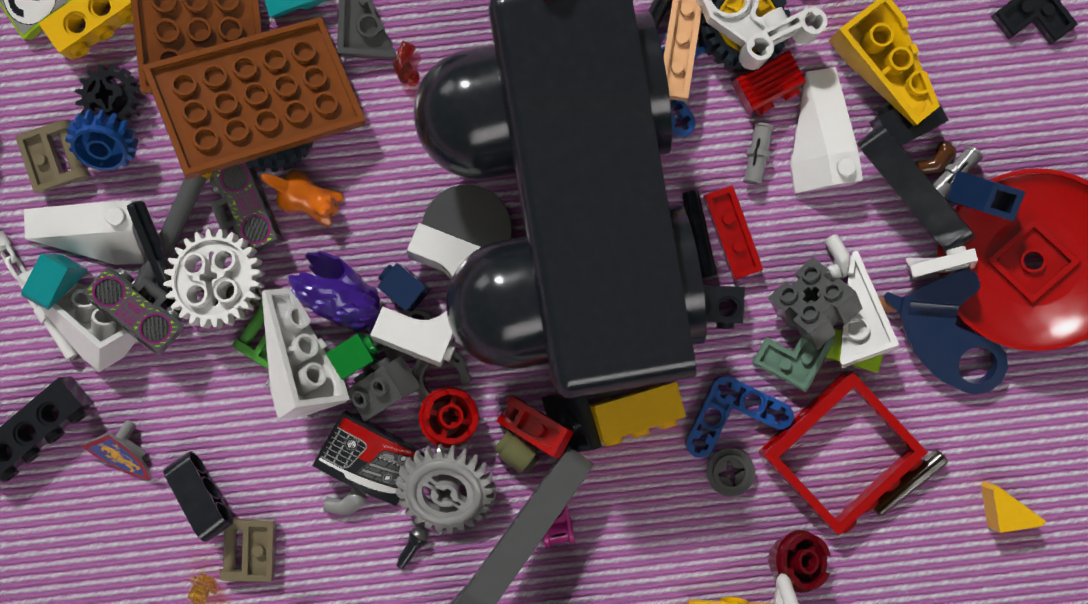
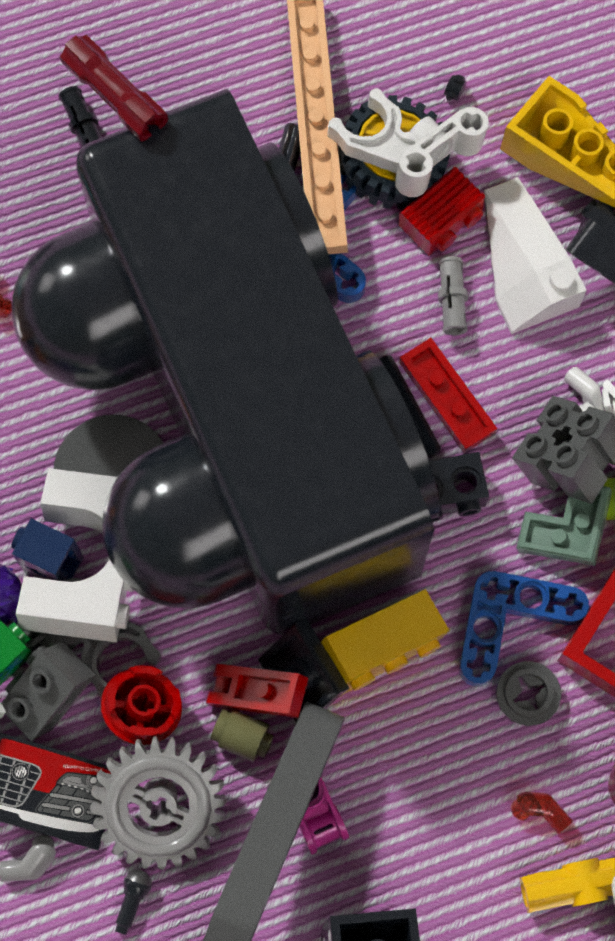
camera: 15 degrees left, 15 degrees down
(716, 553) = (543, 806): none -> clear red arm

